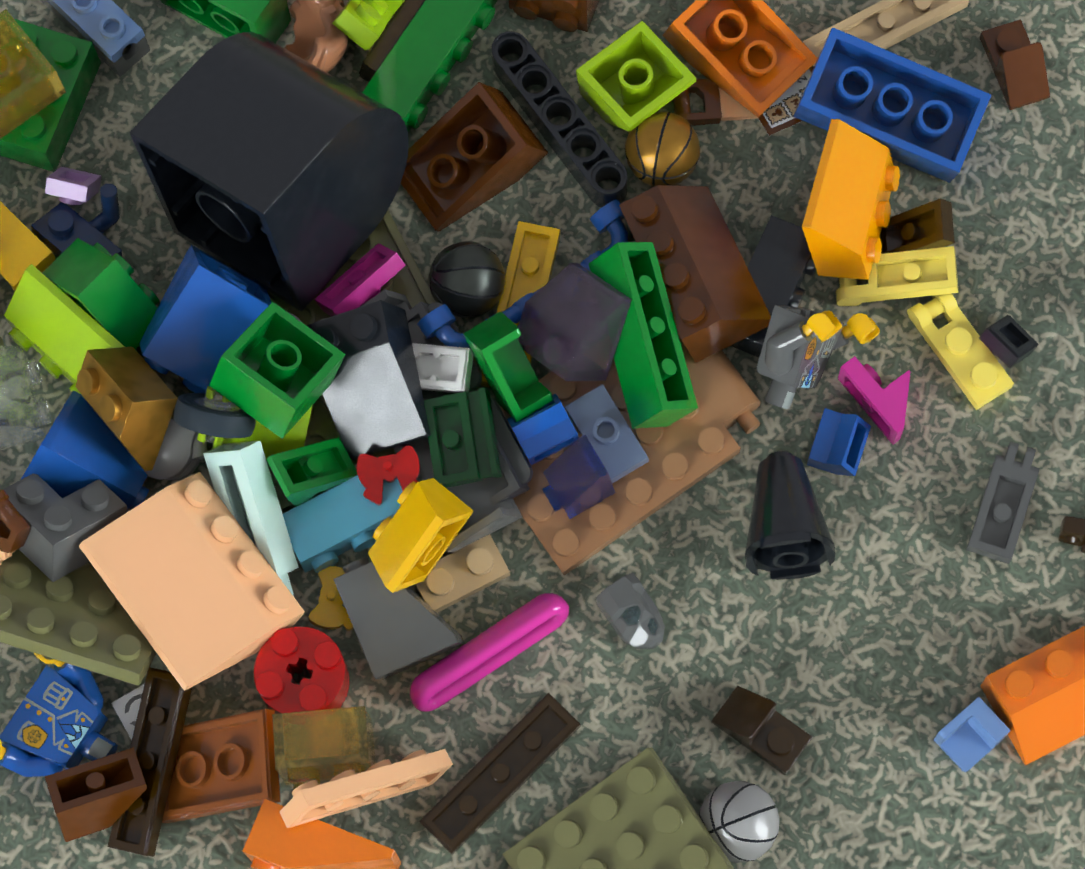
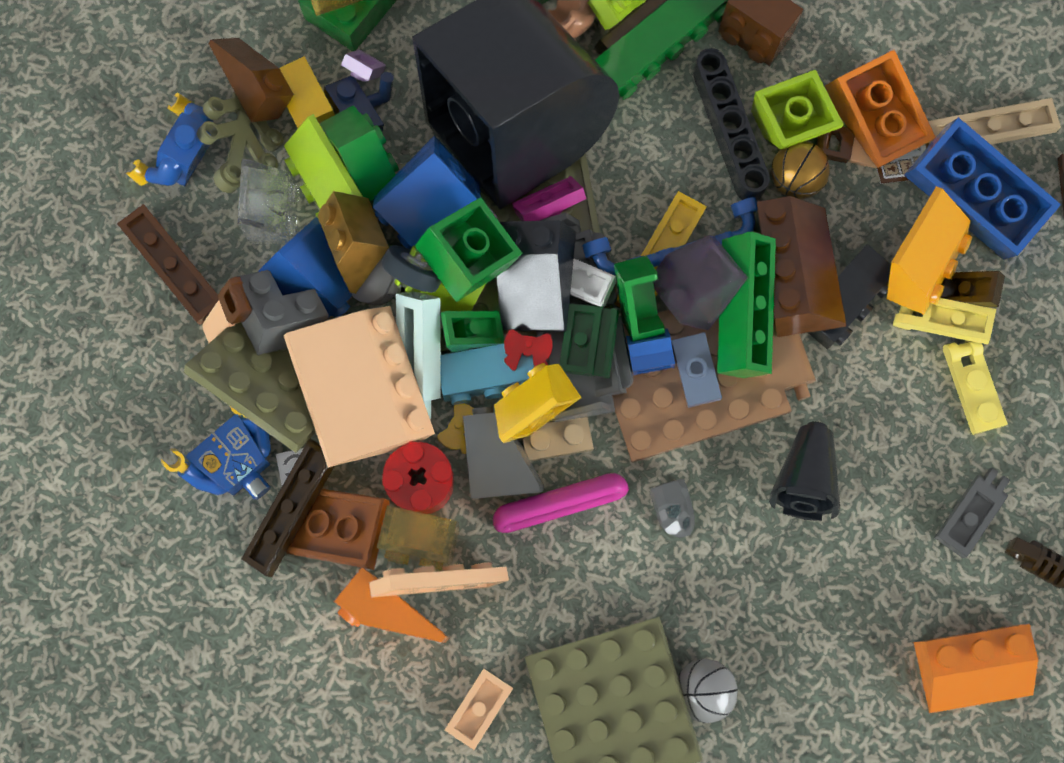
camera: 10 degrees right, 5 degrees up
(95, 793) = (242, 518): reddish brown slope -> none
(467, 278) = (628, 222): pearl dark grey piece -> none
(469, 156) = (657, 132): reddish brown slope -> none
(500, 773) = (541, 595): dark brown tile -> none
(577, 479) = (665, 398): clear blue slope -> none
(762, 729) = (743, 624): dark brown slope -> none
(801, 345) = (858, 350): dark grey torso -> none
(839, 443) = (864, 428): blue piece -> none
(883, 406) = (905, 412): dark pink slope -> none
(971, 734) = (898, 678): medium blue panel -> none
(1008, 341) = (1013, 391): black tile -> none

